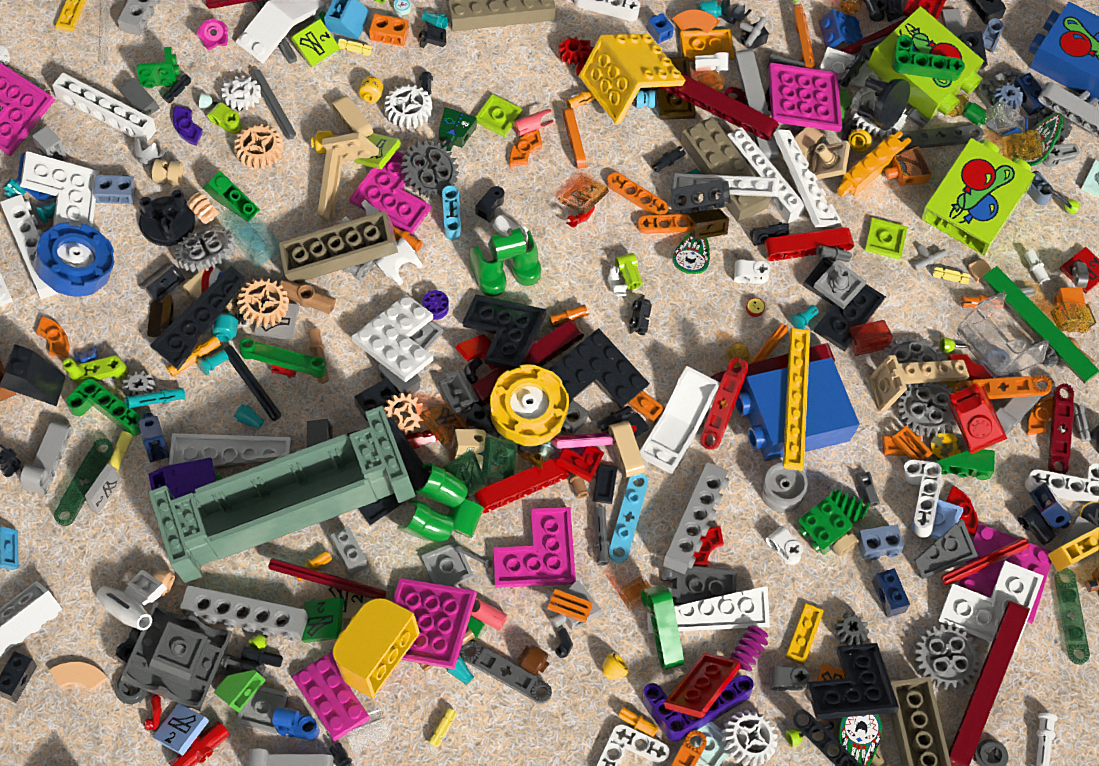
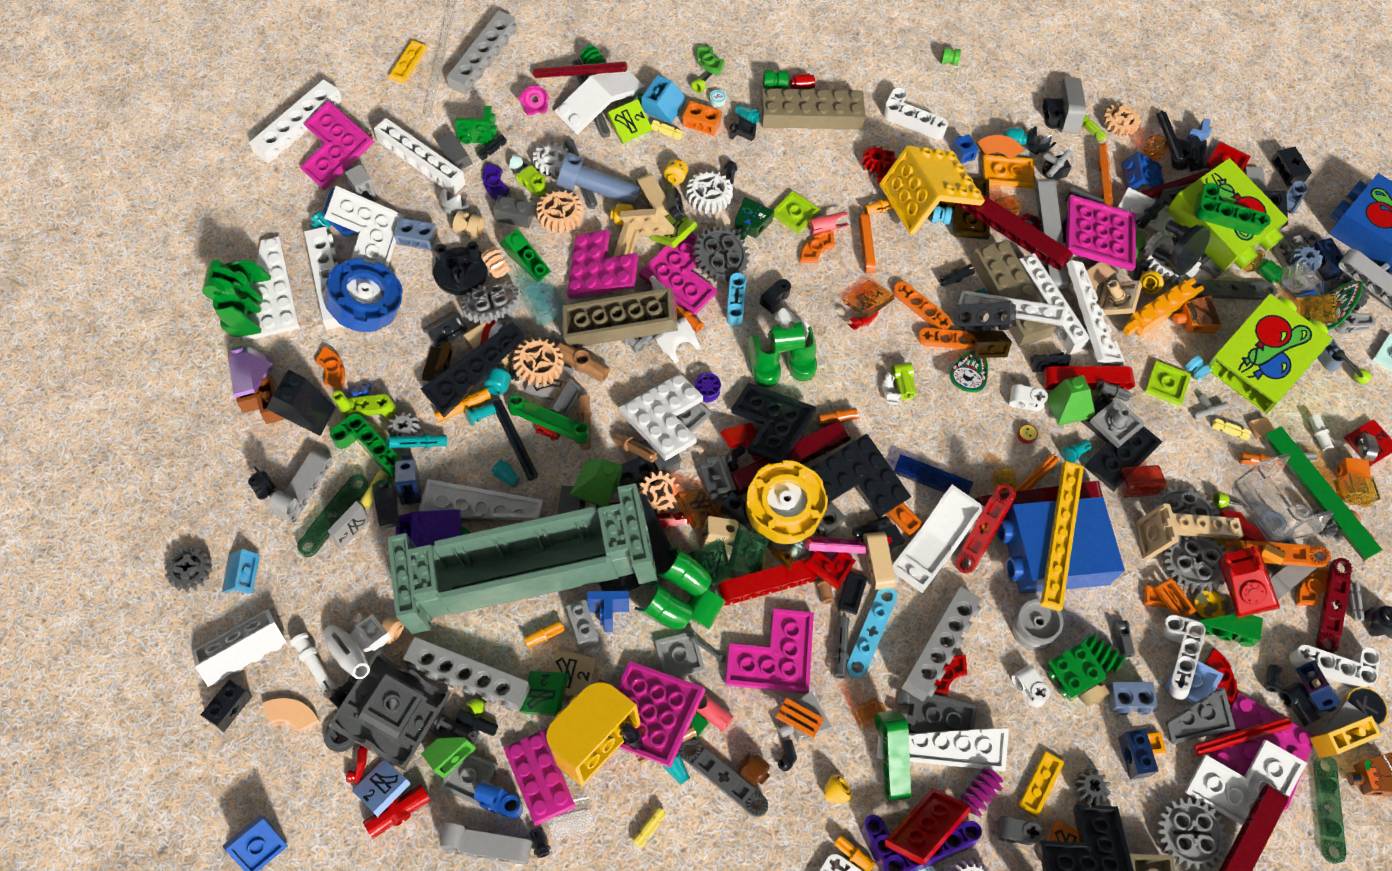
camera: 10 degrees right, 0 degrees up
(46, 212) = (346, 247): teal pin -> none
(85, 618) = (308, 655): none -> white pin
(136, 462) = (386, 504): none -> black slope
(211, 153) = (513, 211): none -> dark grey brick
(270, 106) = (575, 173): none -> sand blue piece
(296, 334) = (566, 397): none -> dark grey tile
(303, 204) = (594, 272): none -> dark pink plate
(326, 579) = (556, 652): dark red axle -> none
(341, 411) = (597, 482): none -> bright green slope
(368, 371) = (630, 444): none -> medium nougat axle
(370, 526) = (606, 603): none -> blue bracket
(375, 122) = (675, 203): none -> black beam
(413, 644) = (631, 736): none -> black axle
(637, 322) = (911, 419): black hinge -> none
(665, 360) = (930, 475): none -> clear blue plate
(718, 61) = (1018, 187): white piece -> none
(793, 269) = (1071, 401): none -> bright green slope
(907, 580) = (1157, 743): none -> light orange tile
(913, 219) = (1198, 368): none -> medium azure wheel
(997, 389) = (1273, 554): none -> light orange tile
(1010, 510) = (1273, 683): none -> black pin

